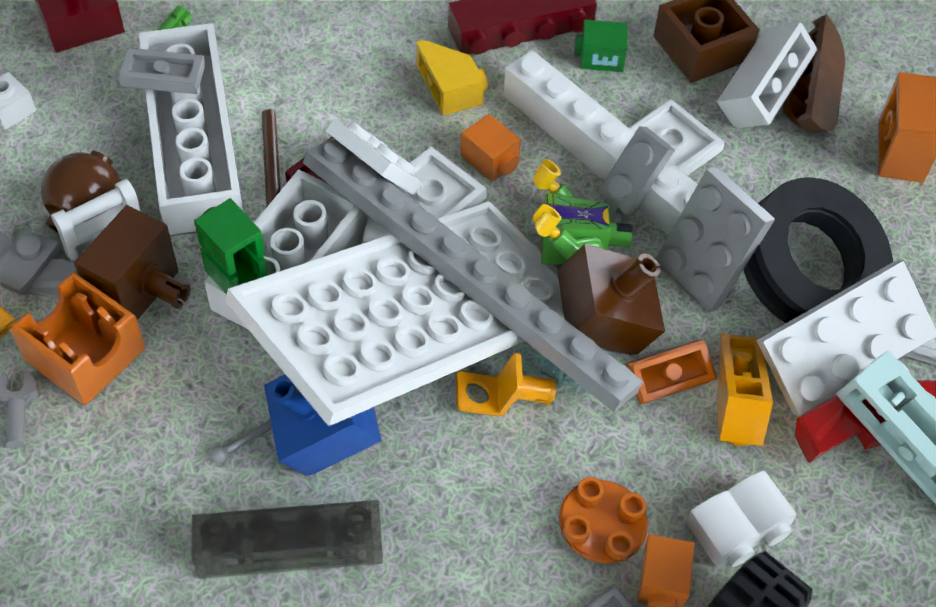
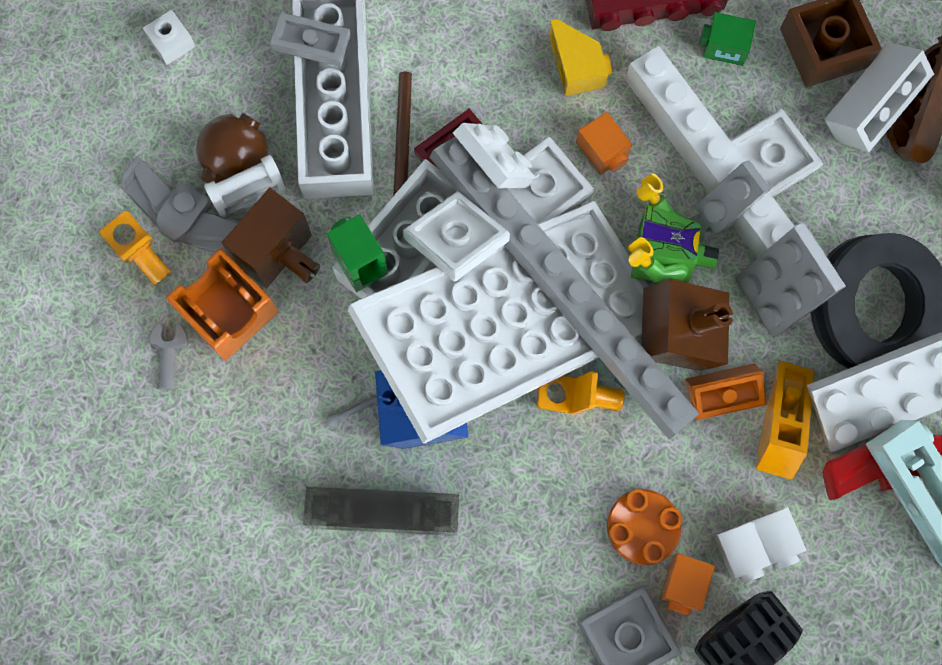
camera: 10 degrees right, 20 degrees up
(341, 227) = (456, 235): none -> white plate

